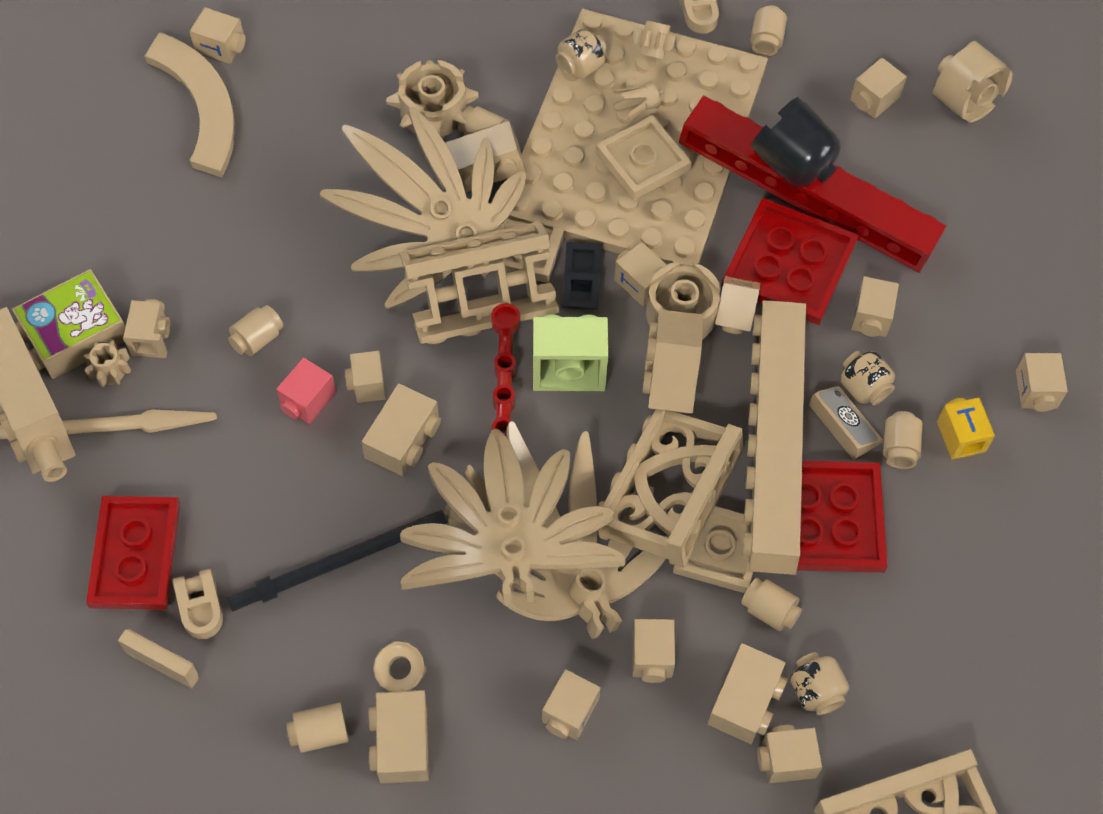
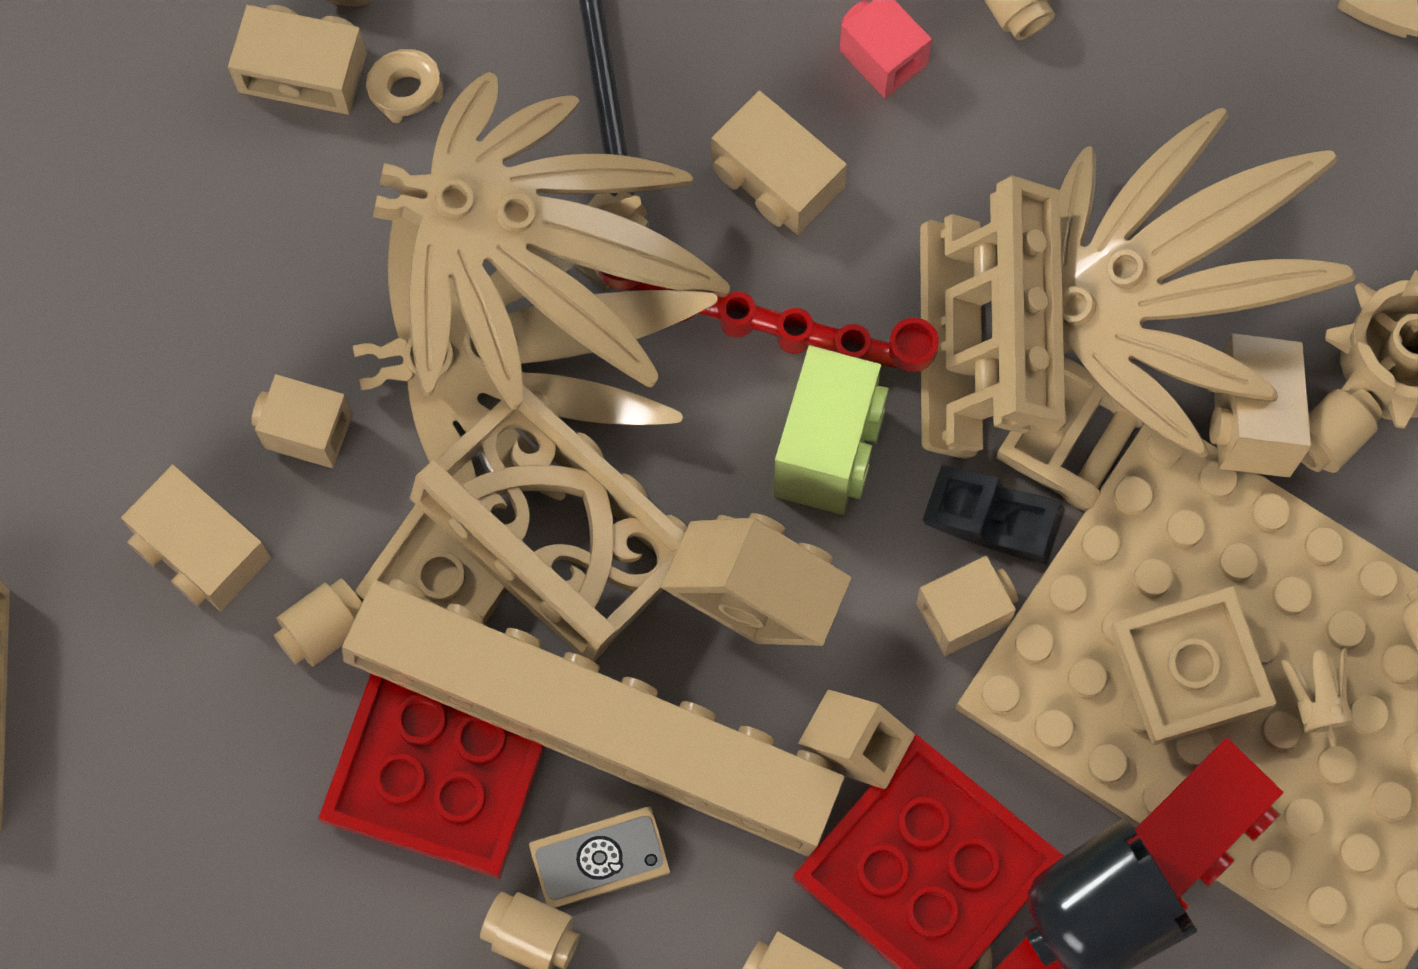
camera: 110 degrees right, 10 degrees up
(366, 377) = (885, 134): tan plate -> none
(570, 705) = (264, 289): tan brick -> none
(684, 290) = (897, 617): tan brick -> none
(789, 754) = (86, 569): tan brick -> none
(819, 683) = (171, 646): tan head -> none
(867, 377) = (663, 919): tan head -> none

